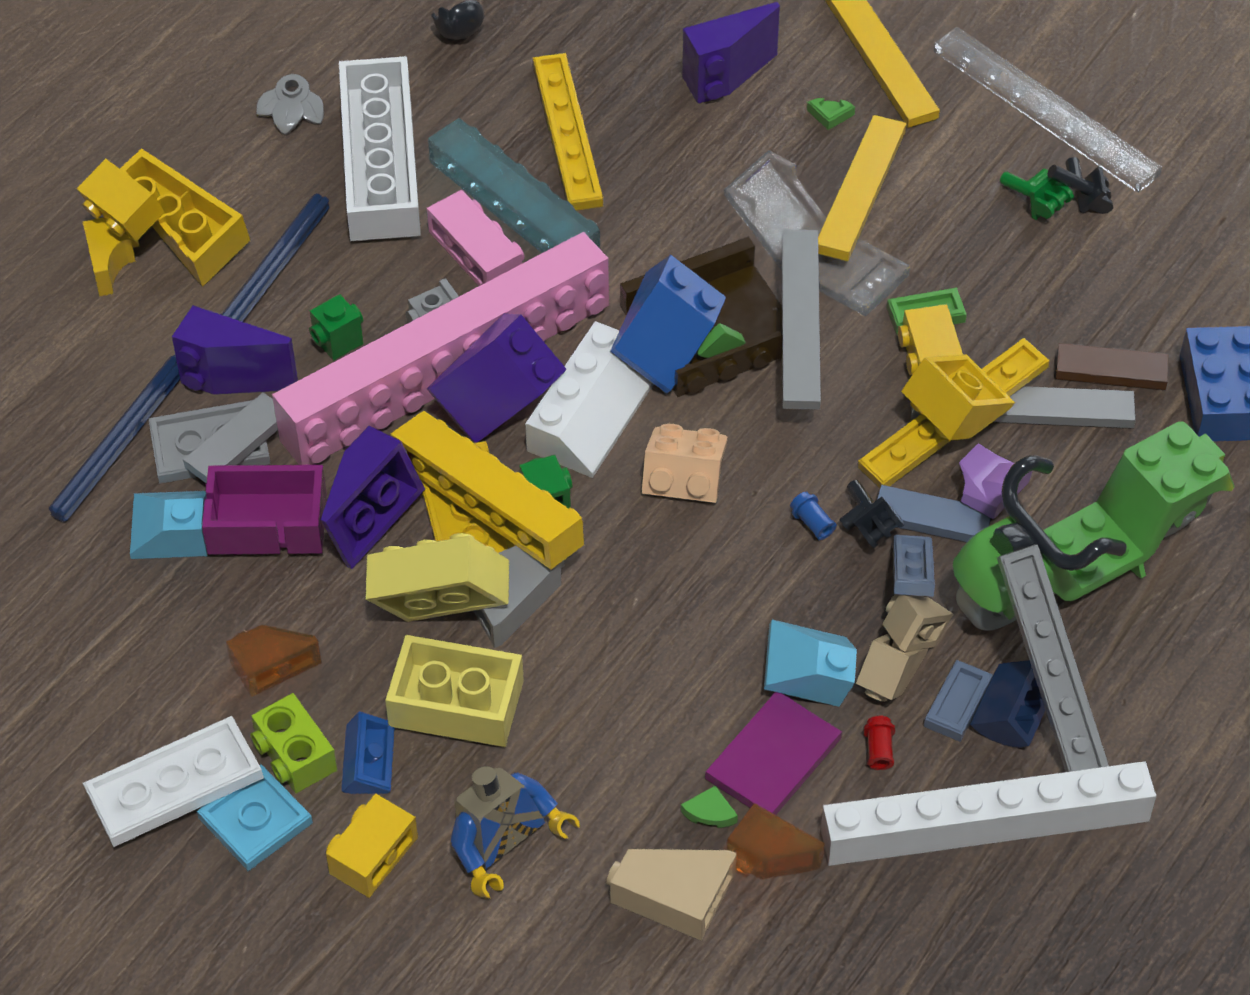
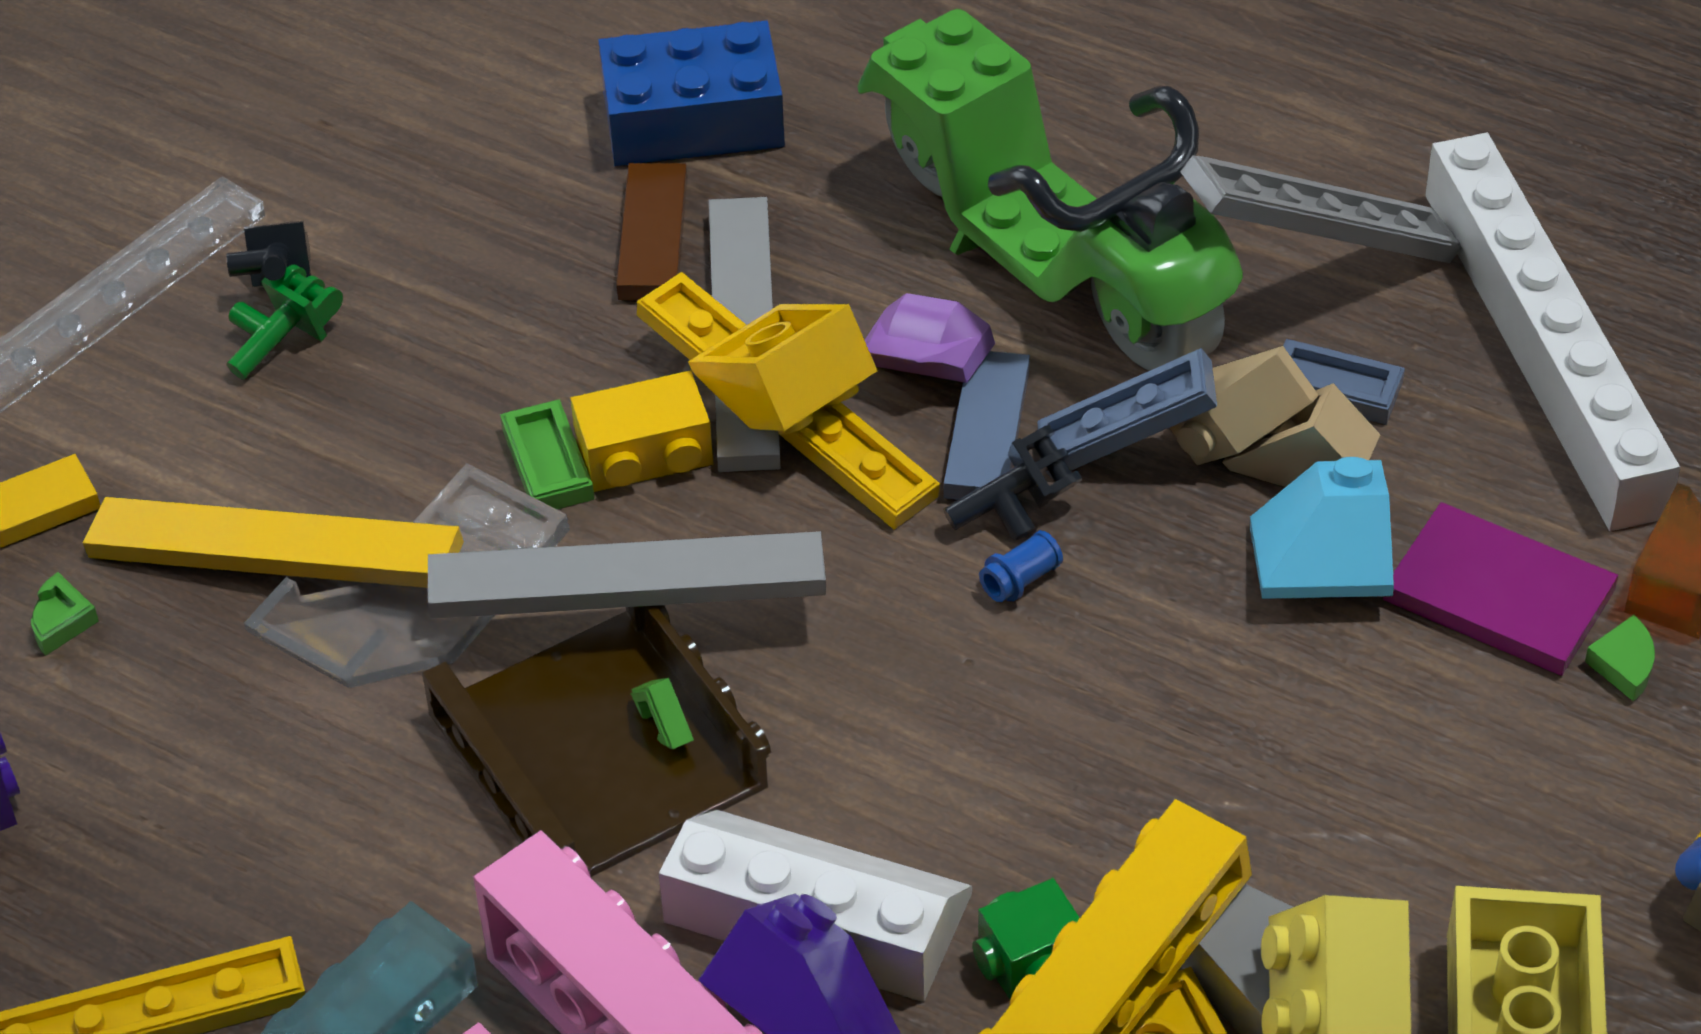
camera: 95 degrees left, 5 degrees down
(667, 322) = (643, 761): blue slope -> none
(683, 463) = (929, 733): light nougat bracket -> none
(879, 734) = (1445, 458): red pin -> none
(1010, 706) = (1335, 311): dark blue brick -> none

